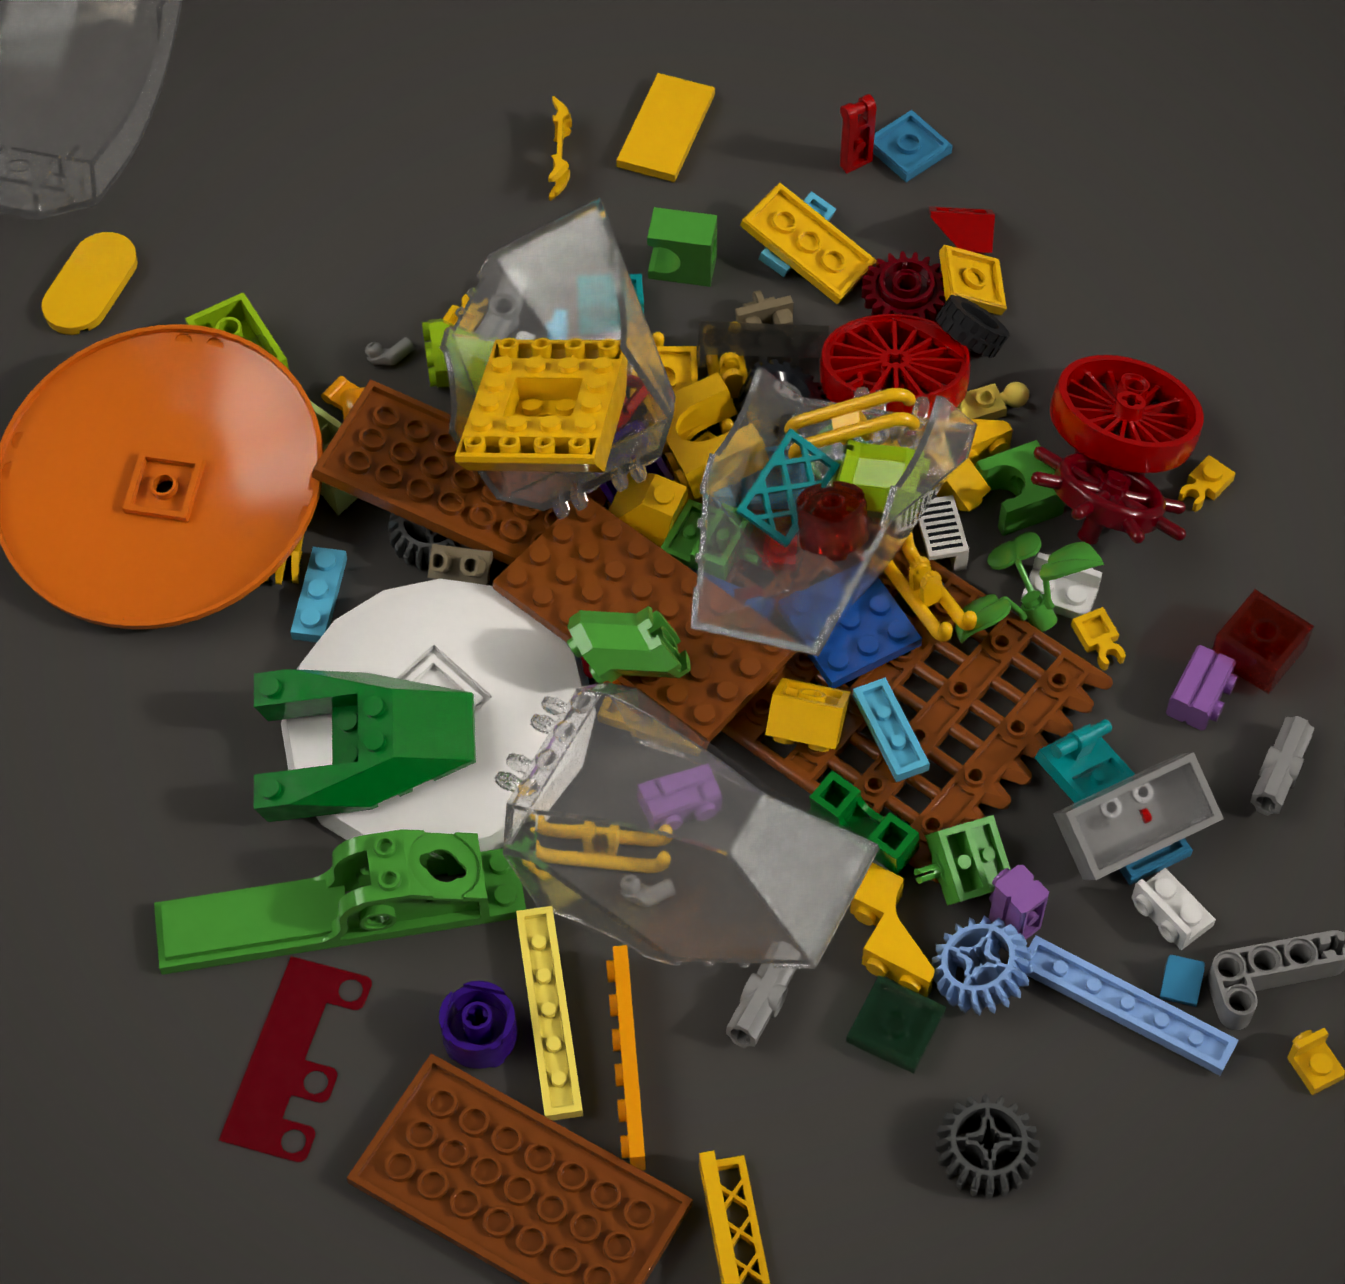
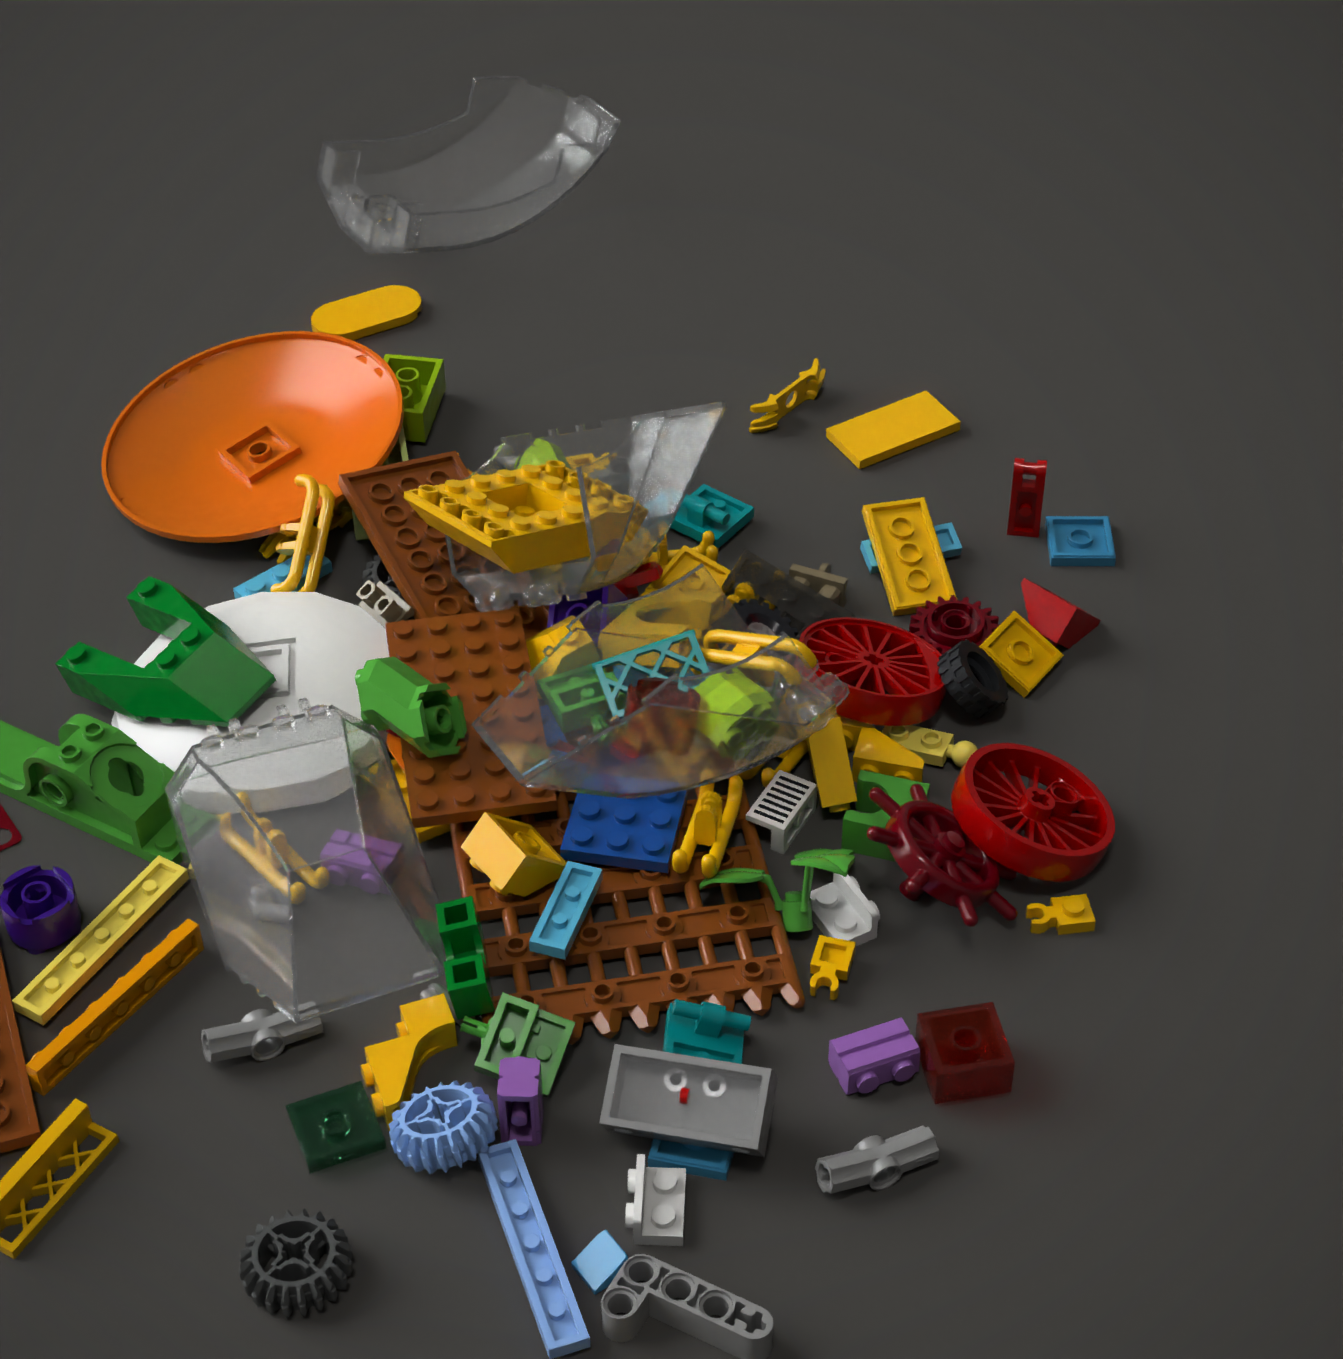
camera: 40 degrees right, 15 degrees down
(335, 542) = (310, 539): none -> yellow piece
(682, 246) = (808, 504): bright green piece -> none

